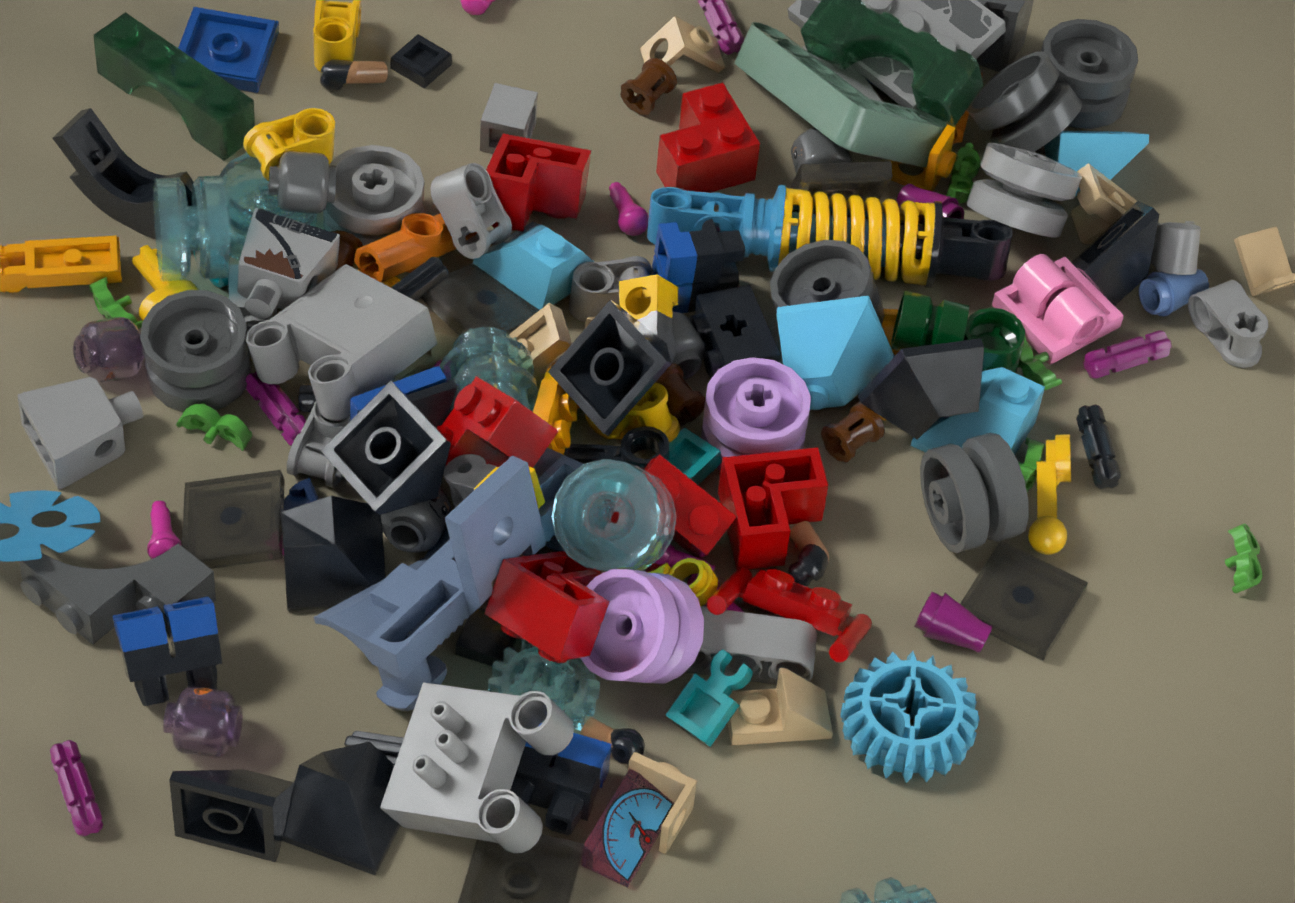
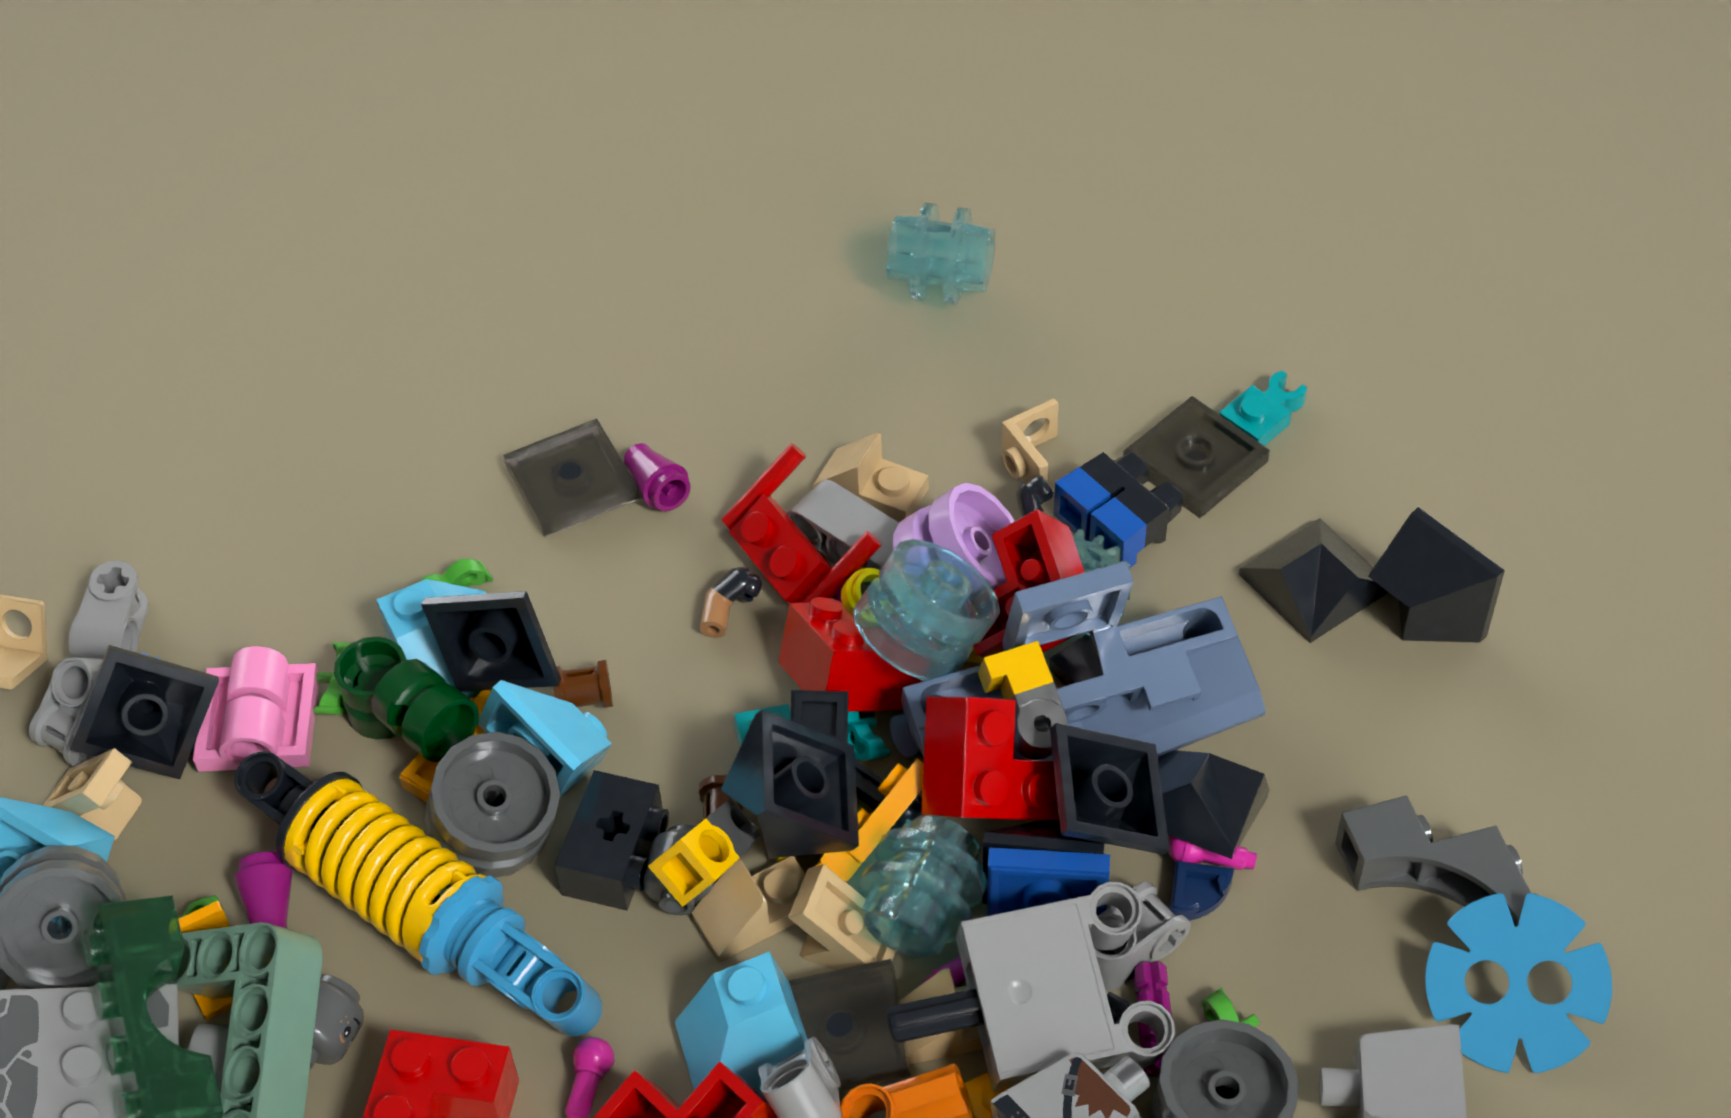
camera: 140 degrees left, 0 degrees up
(76, 788) = (1568, 705): magenta axle -> none
(147, 651) = (1414, 754): hips -> none
(163, 536) = (1366, 909): dark pink piece -> none
(204, 722) = (1420, 689): clear purple head -> none
(234, 519) = (1280, 896): clear smoke tile -> none
(462, 760) = (1203, 516): light grey piece -> none
(599, 282) = (680, 961): light grey piece -> none
(626, 829) = (1084, 443): slope -> none
(642, 439) = (821, 711): none -> black tile
(697, 261) = (593, 919): hips -> none
(706, 705) = (915, 494): teal plate -> none
(755, 408) = (671, 727): lavender wheel -> none
(767, 497) = (728, 646): red brick -> none
(848, 179) = (357, 935): clear smoke tile -> none
(882, 730) = (764, 402): medium azure gear -> none
(974, 492) = (540, 539): dark grey wheel -> none
(1024, 190) = (170, 817): light grey wheel -> none
(1047, 533) = (493, 512): yellow piece -> none
(1098, 446) = (362, 573): black axle -> none
(1127, 354) = (224, 643): magenta axle -> none
(1247, 565) = (343, 415): bright green piece -> none

